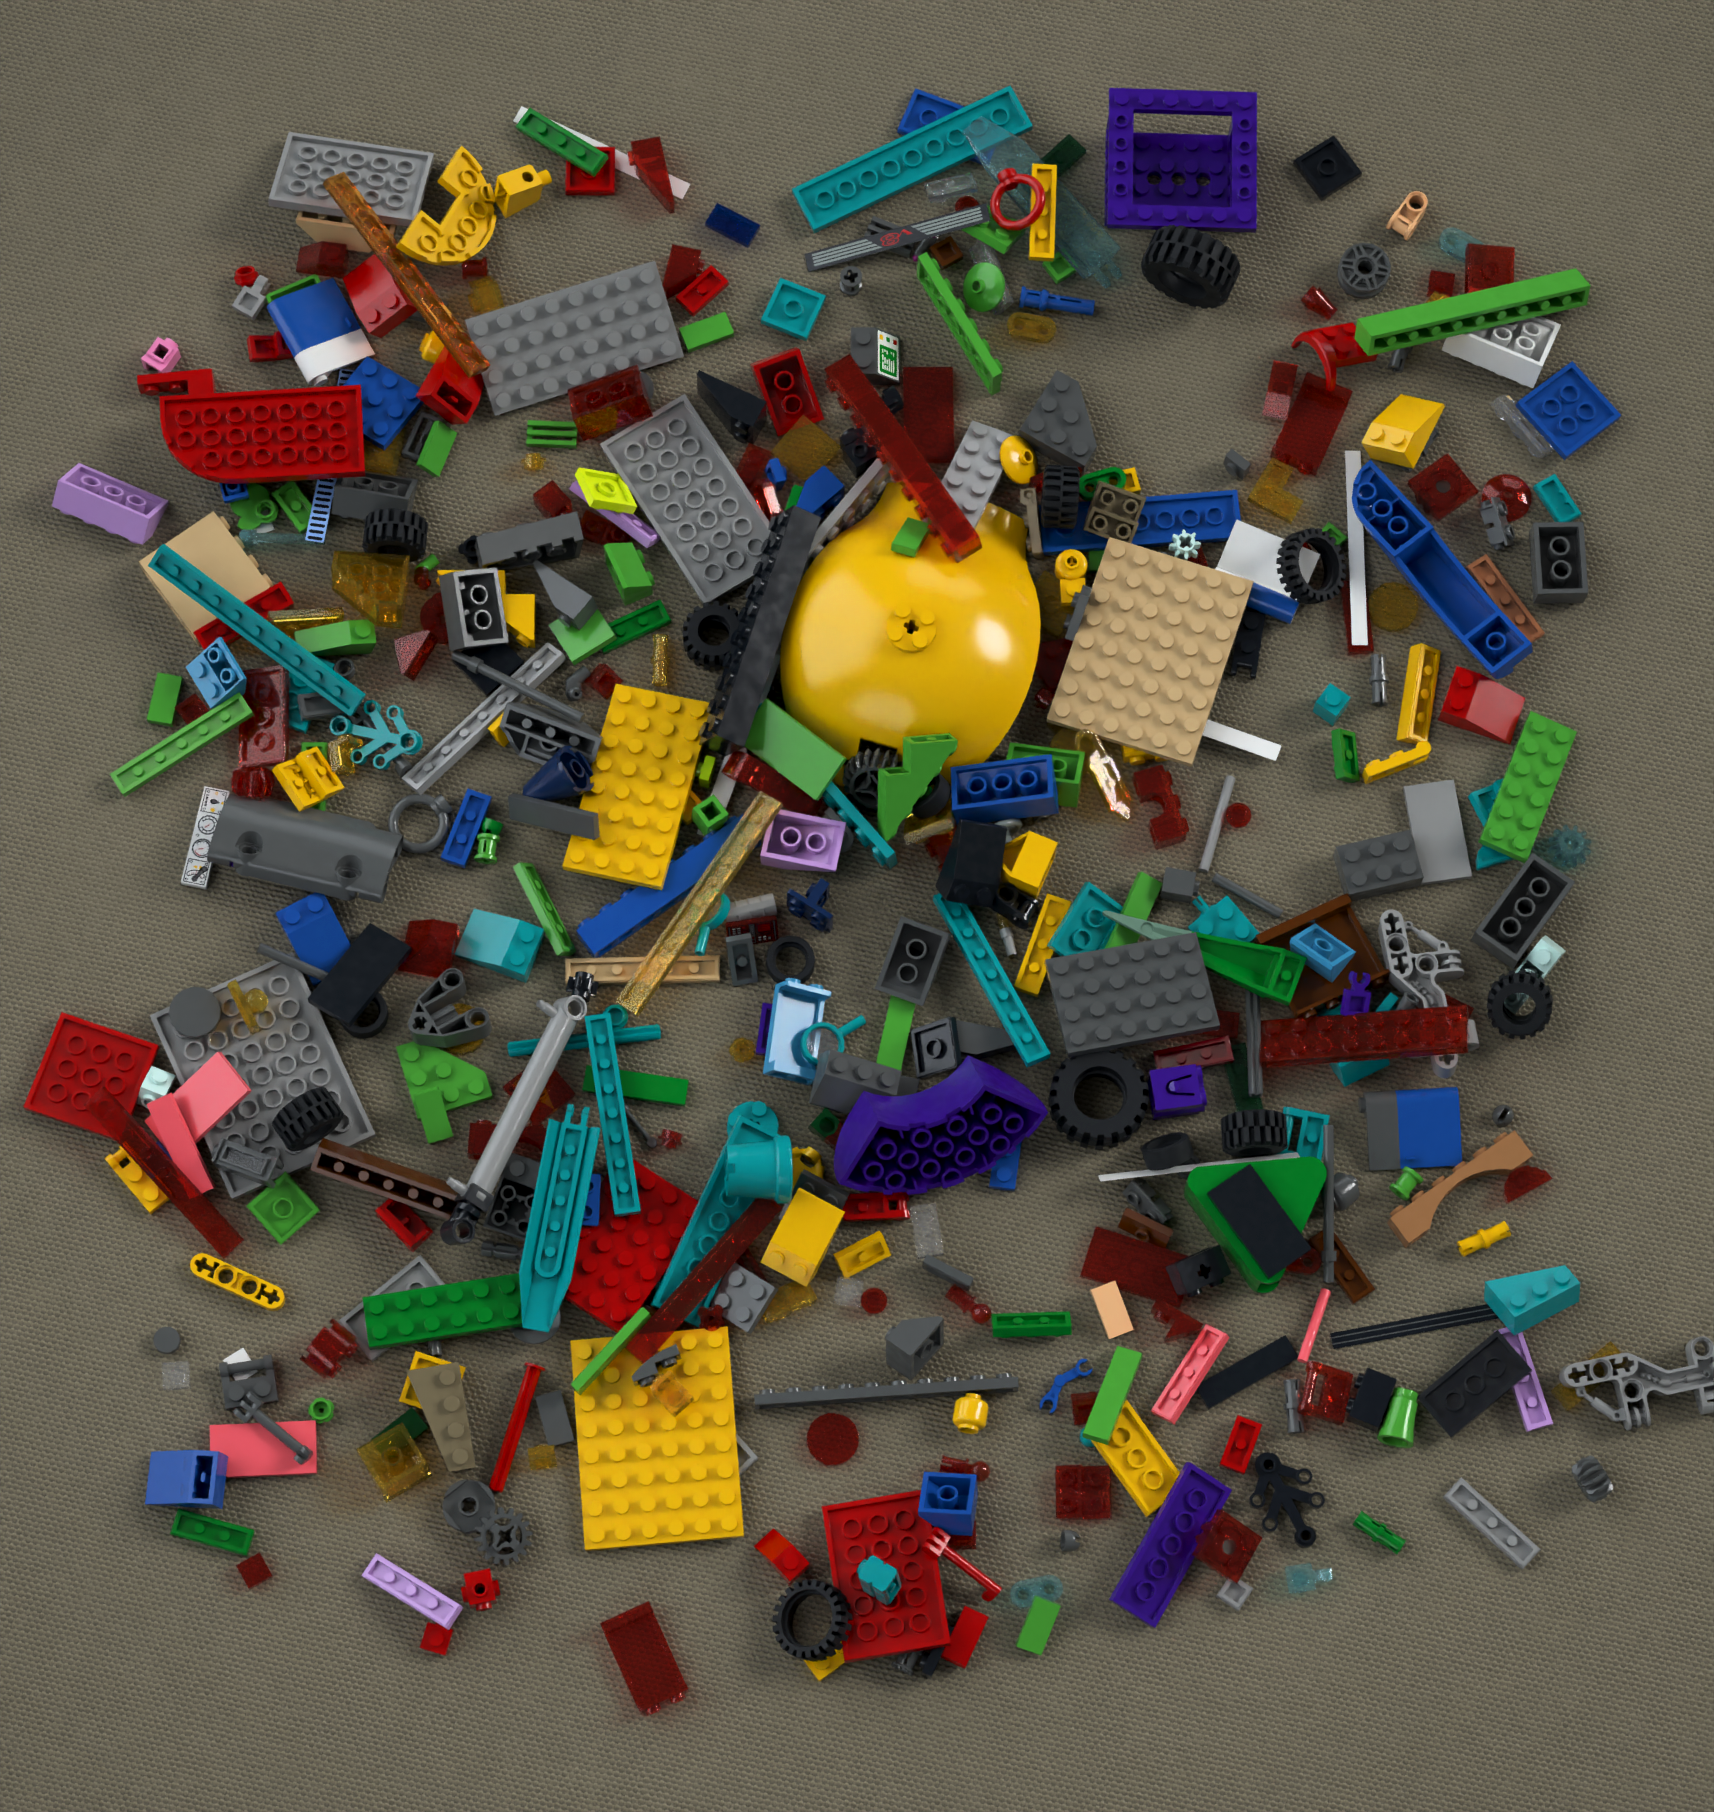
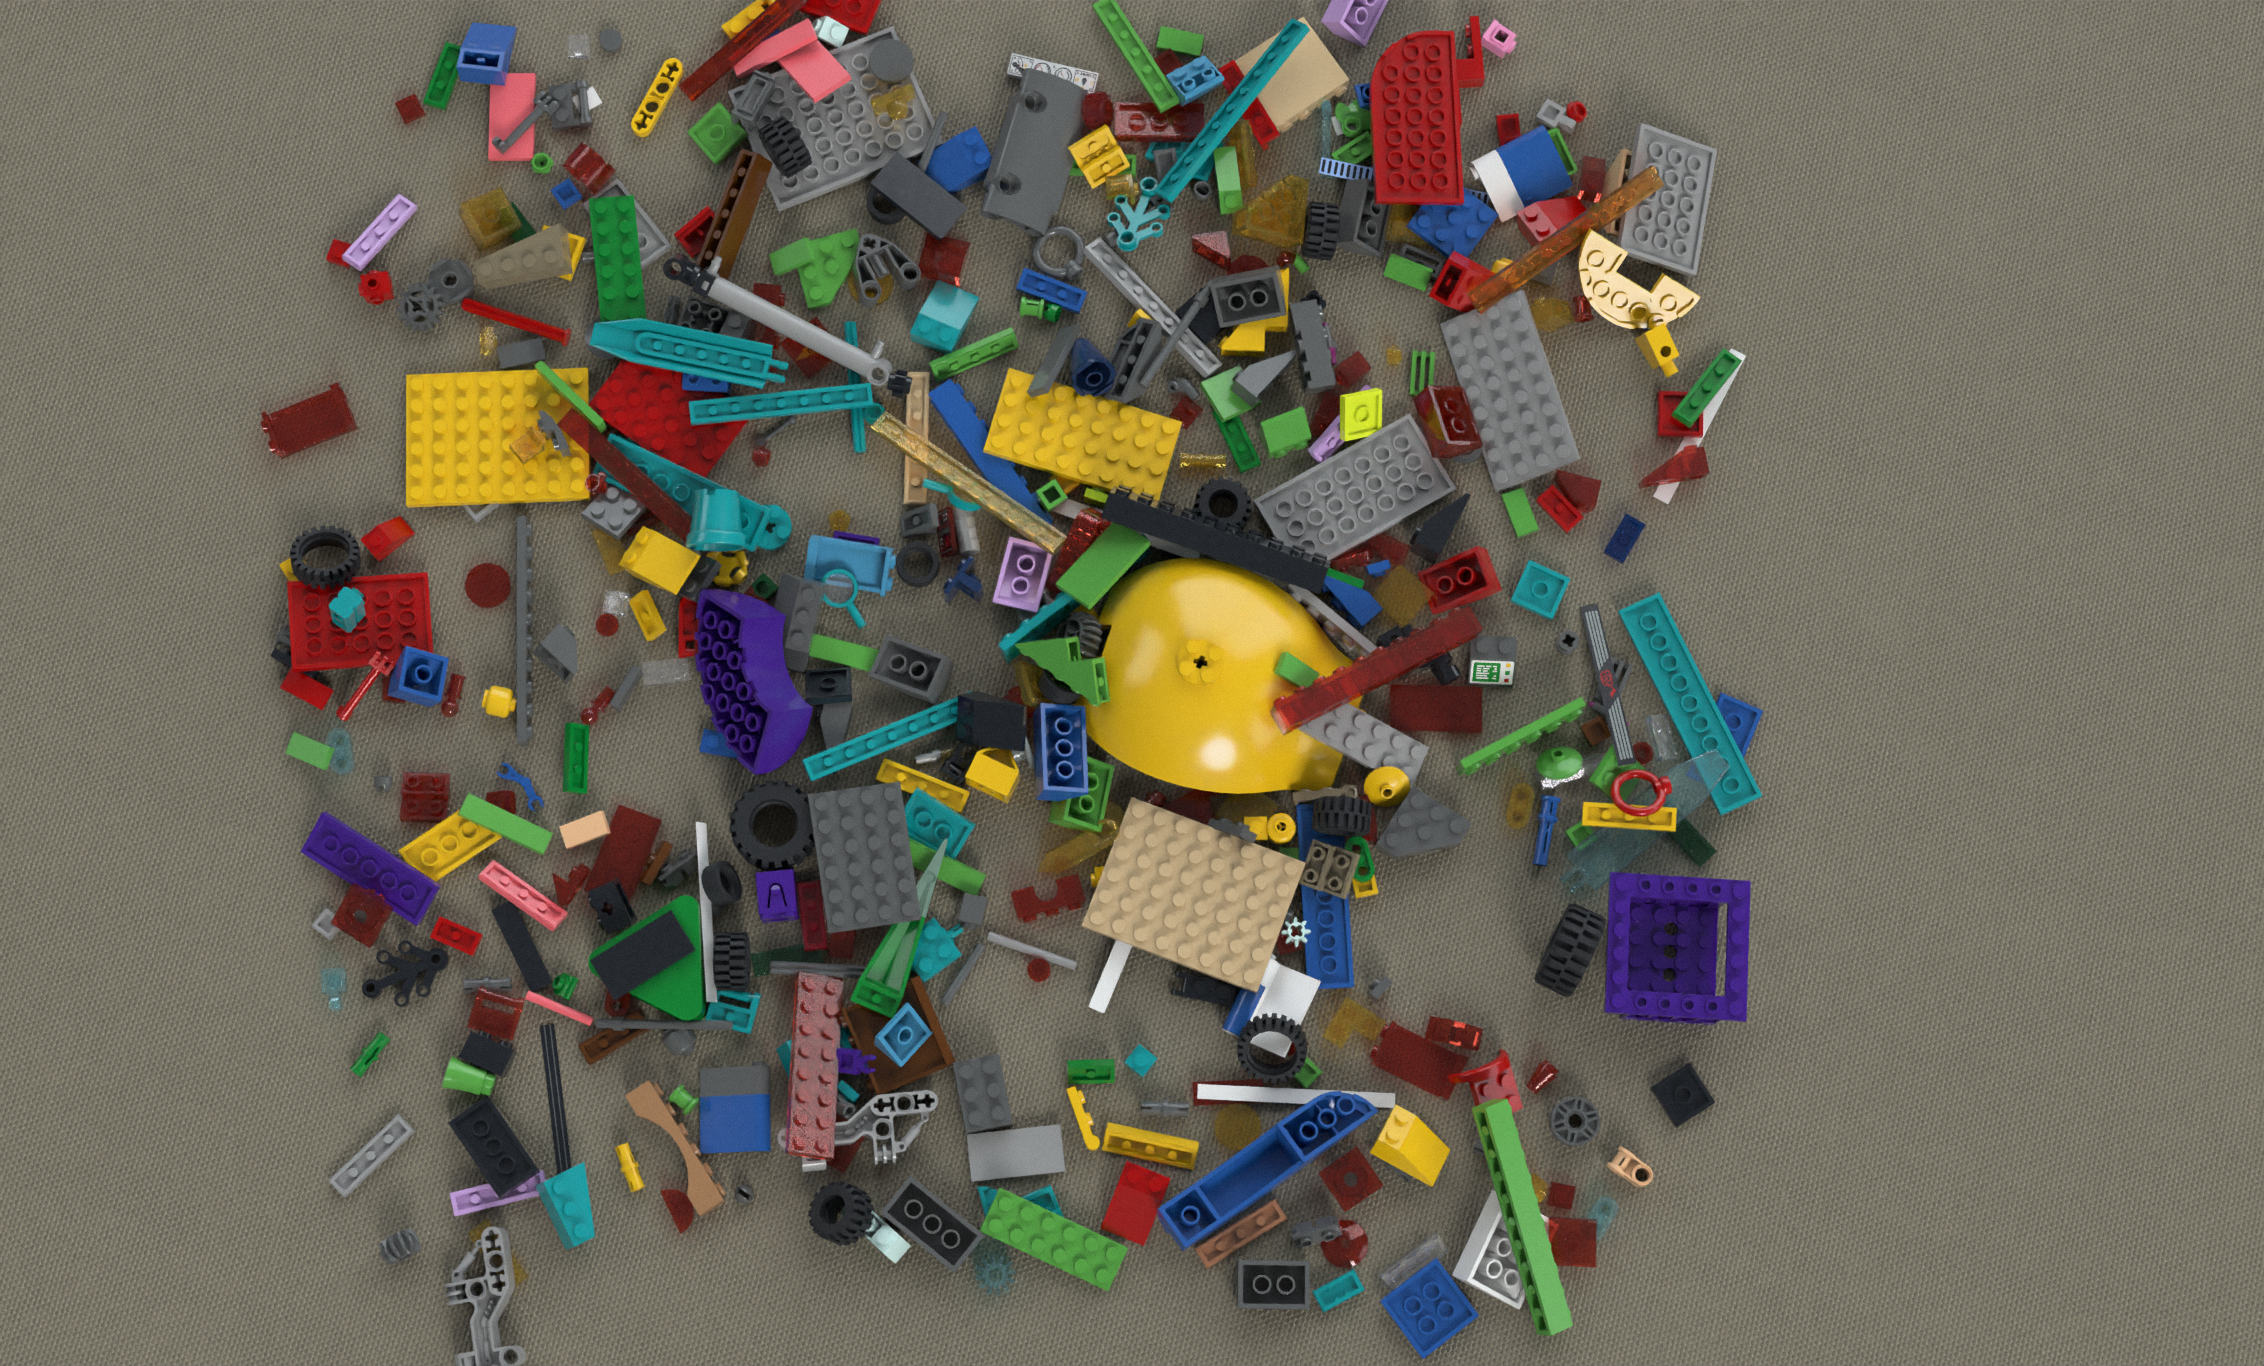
camera: 90 degrees right, 5 degrees up
(359, 1378) = (566, 194): none -> blue plate
(645, 1087) = (809, 440): green tile -> none
(1287, 1322) = (564, 985): none -> green plate

